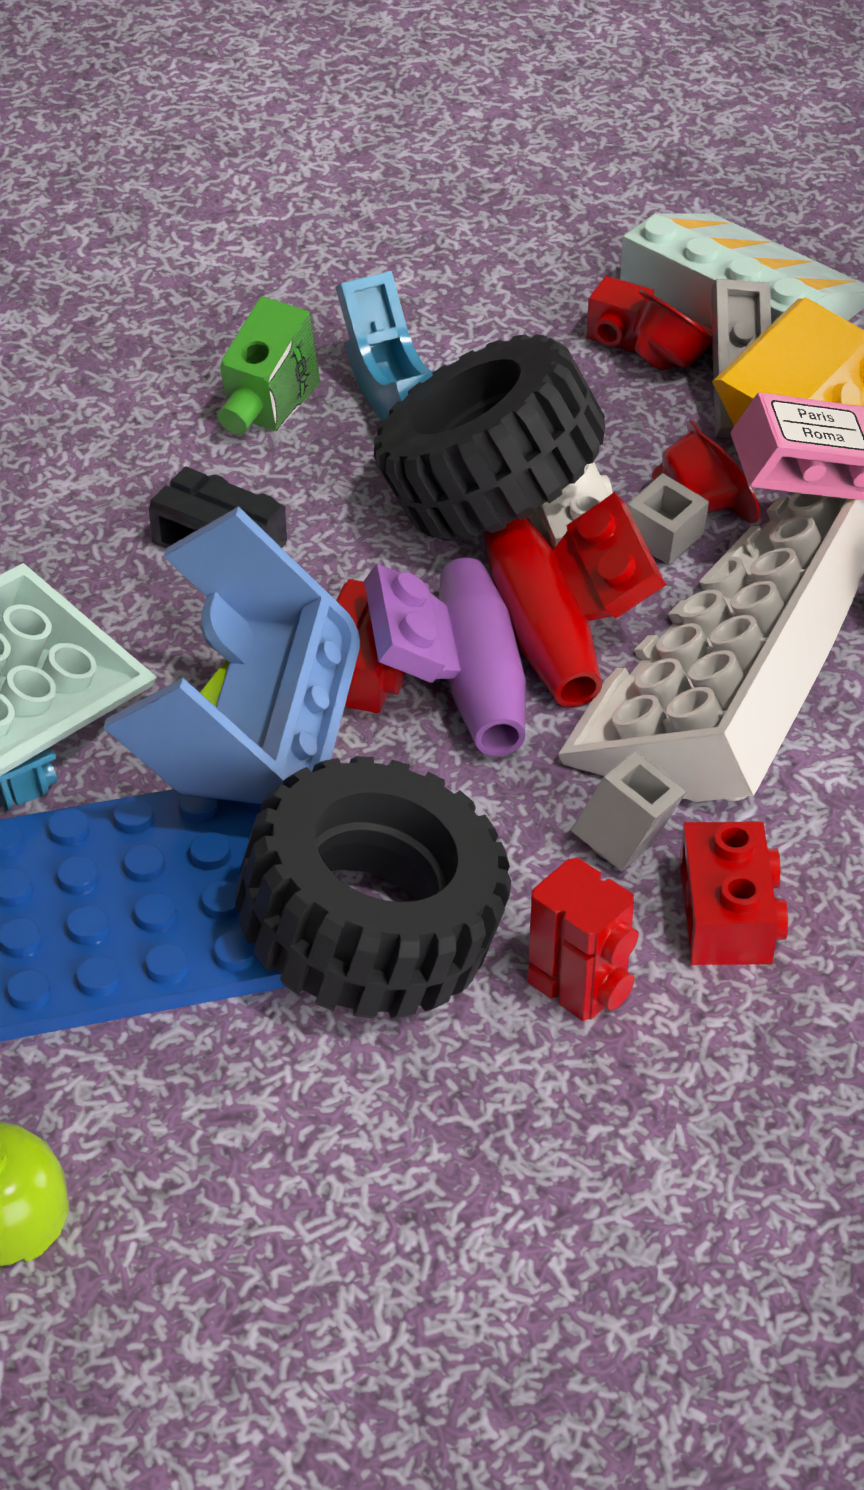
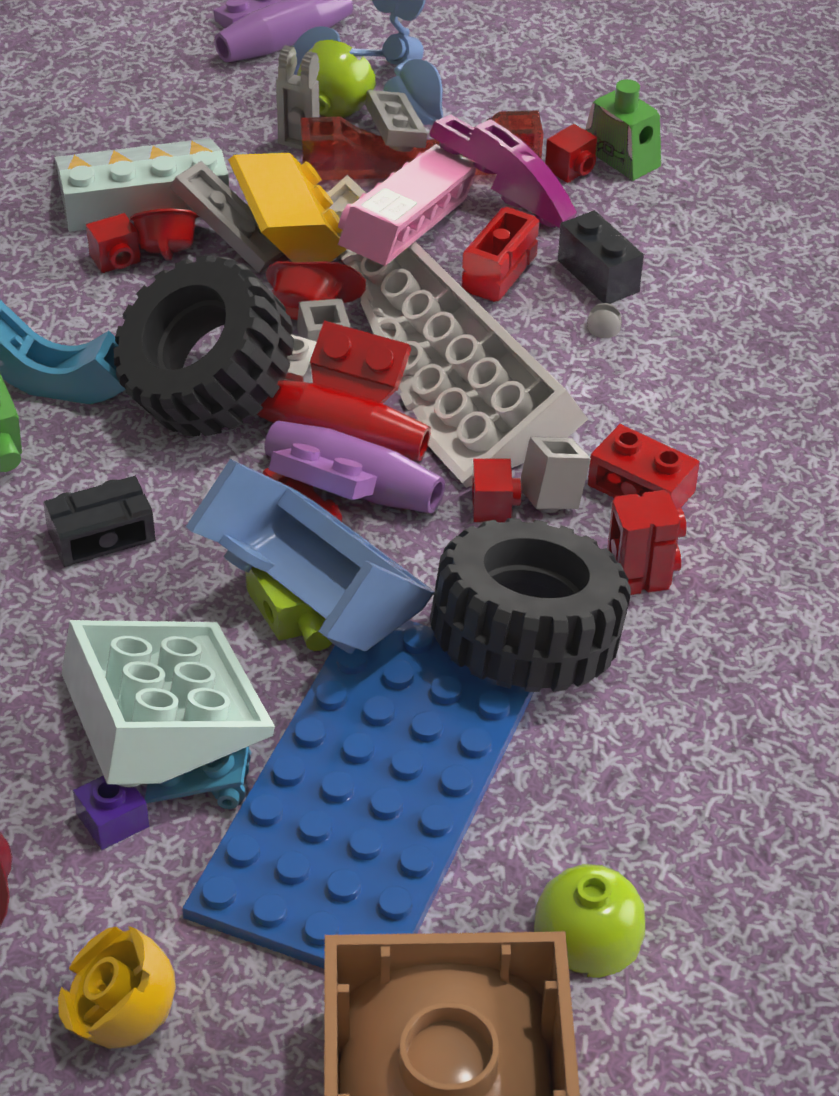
camera: 55 degrees left, 0 degrees up
(559, 779) = (494, 490): none -> red plate

